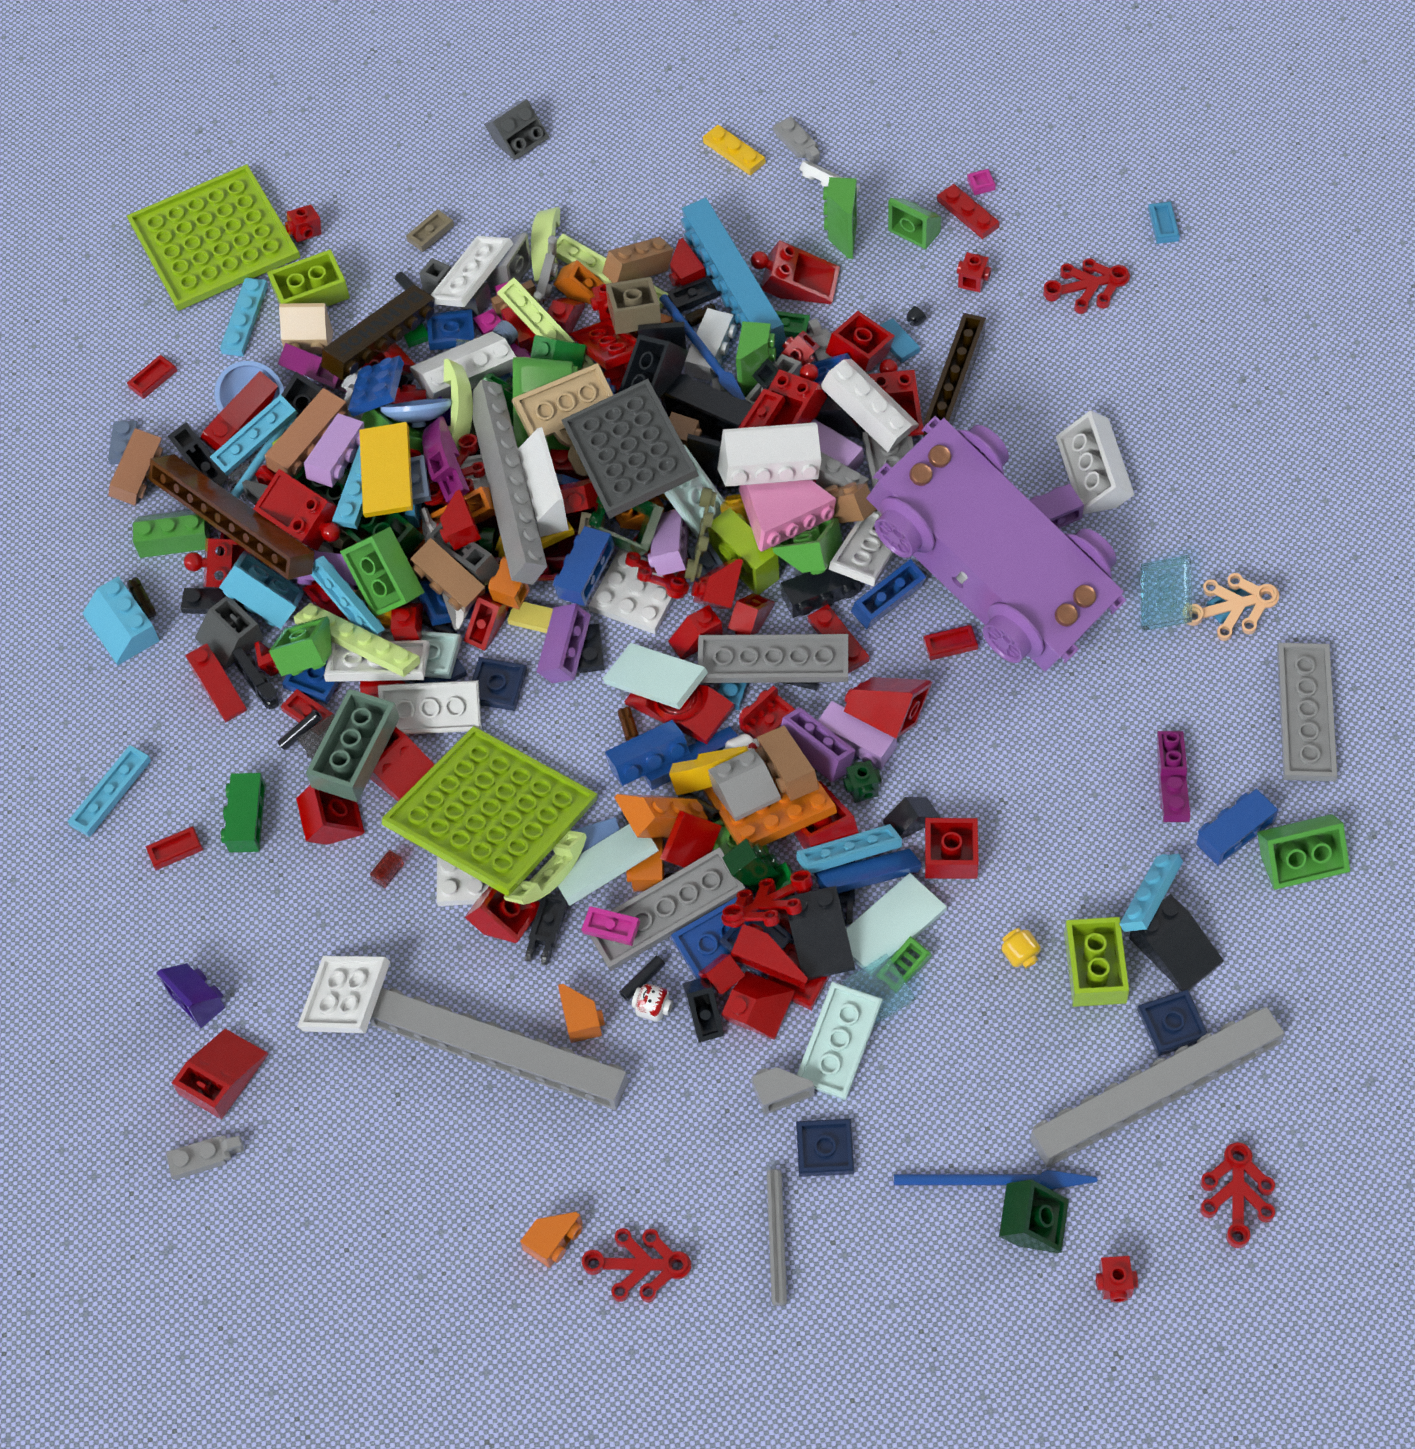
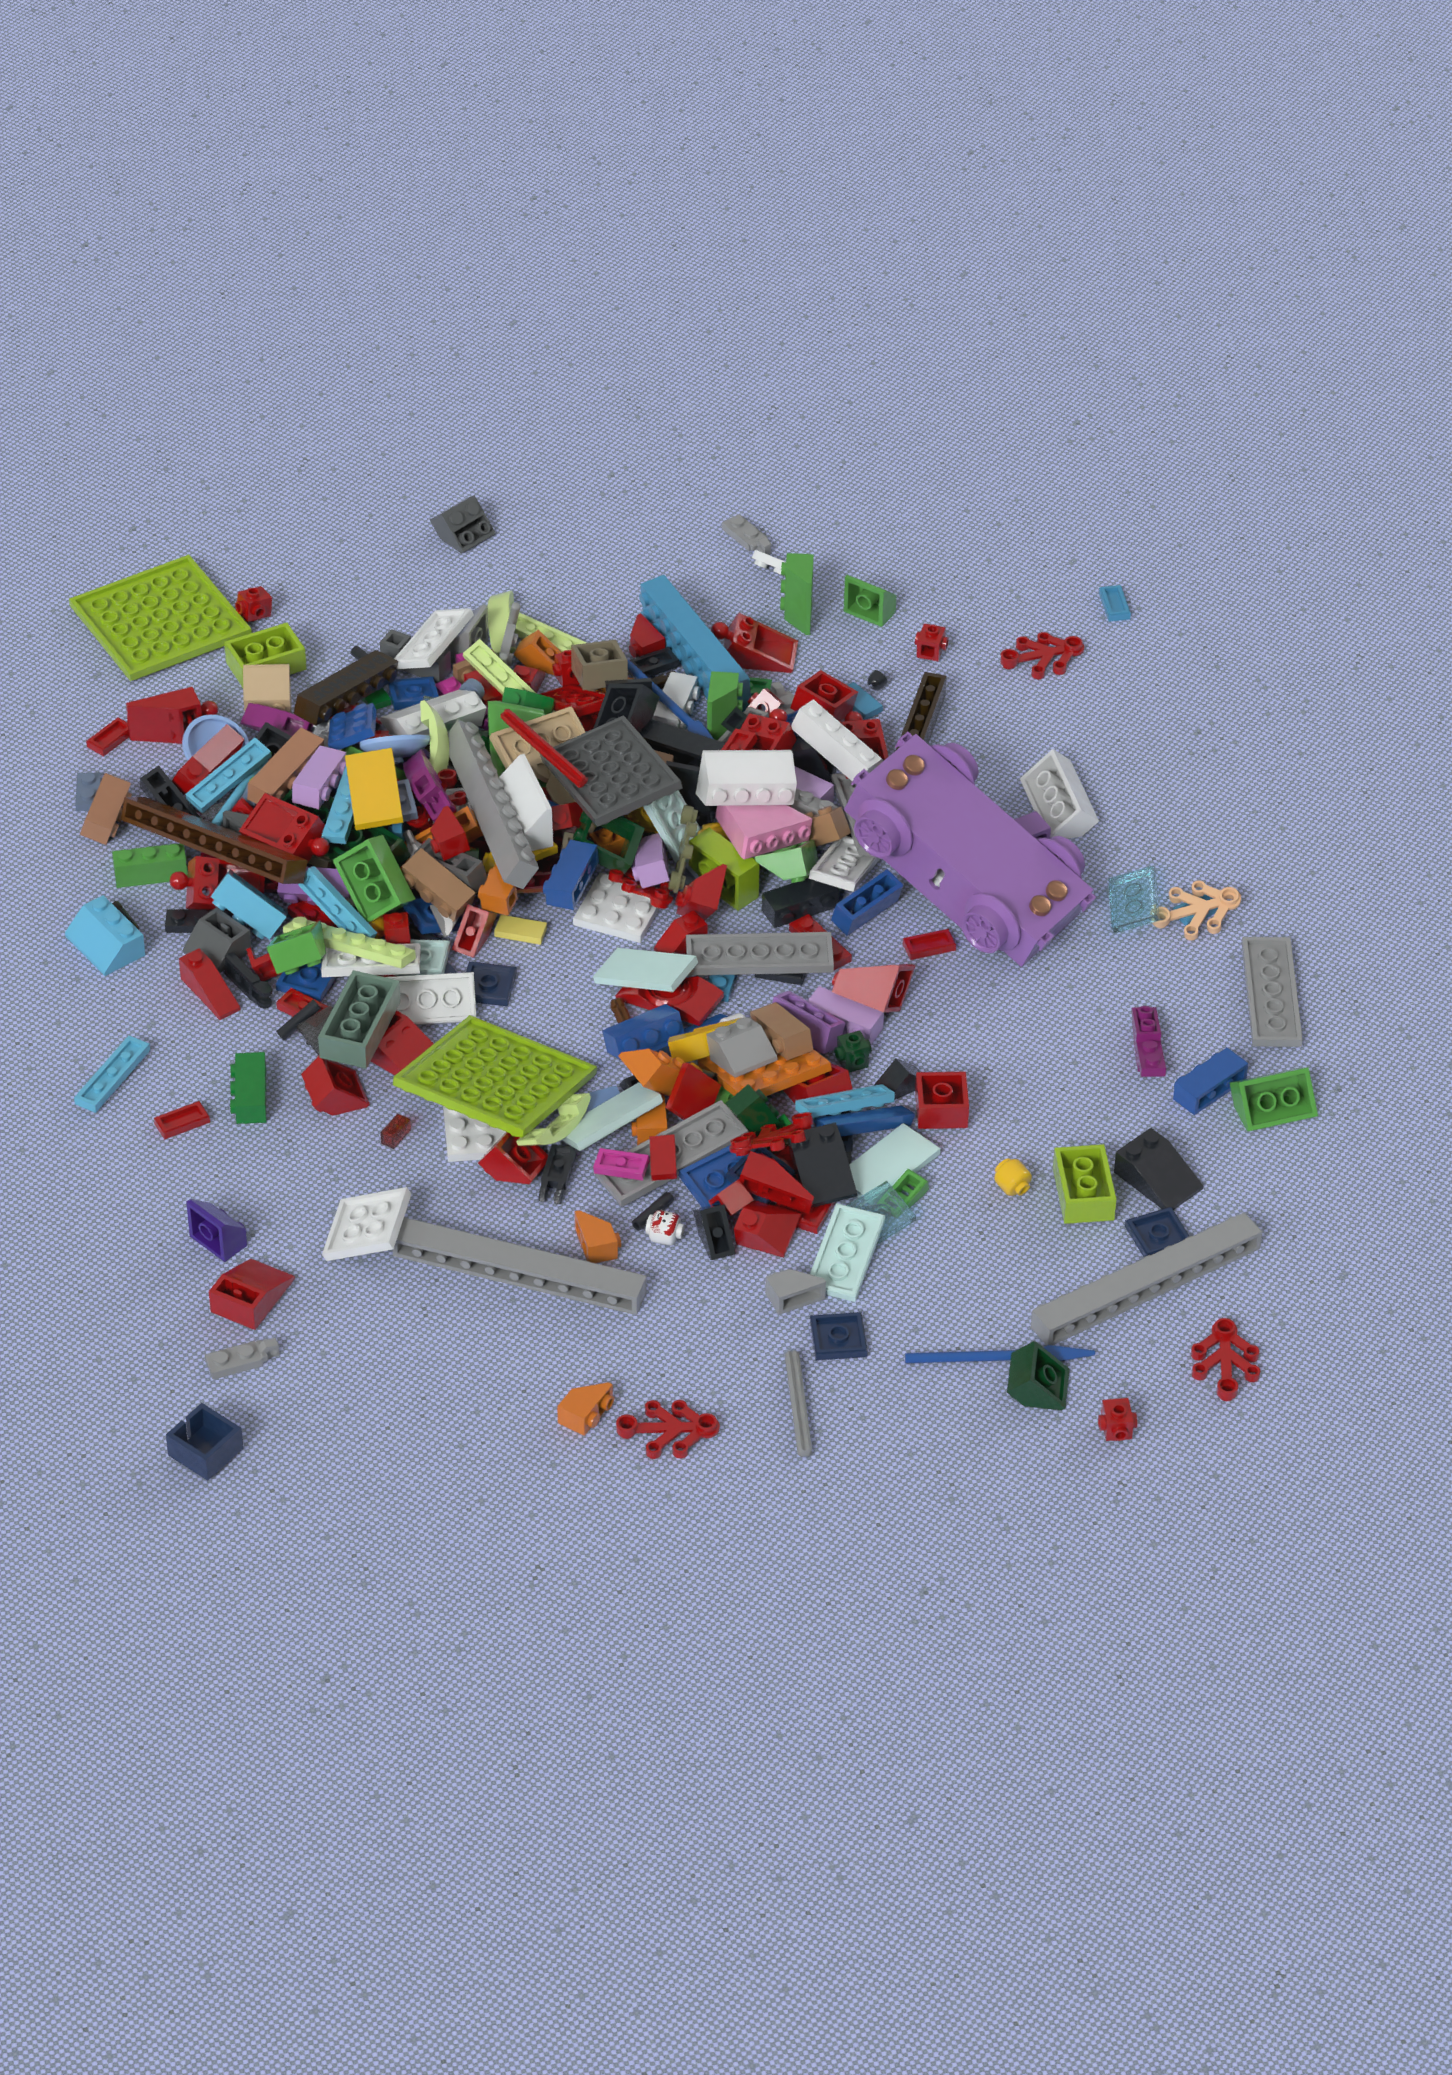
camera: 10 degrees left, 15 degrees down
(156, 1276) = (210, 1443): none -> dark blue piece
(204, 357) = (166, 715): none -> red slope
(244, 317) = (204, 674): medium azure plate -> none
(430, 230) = (382, 611): dark tan plate -> none
(563, 420) = (544, 748): none -> red axle
(563, 643) = (553, 945): medium lavender brick -> none
(592, 654) = (577, 953): black plate -> none
(638, 260) = (599, 628): medium nougat brick -> none
(654, 918) = (663, 1157): none -> red tile
(734, 149) = (684, 543): yellow plate -> none
(750, 614) = (733, 921): red slope -> none
(764, 713) = (752, 997): red bracket -> none
(968, 211) = (921, 594): red plate -> none
(981, 182) = (933, 570): dark pink tile -> none
(1151, 892) = (1133, 1127): medium azure plate -> none

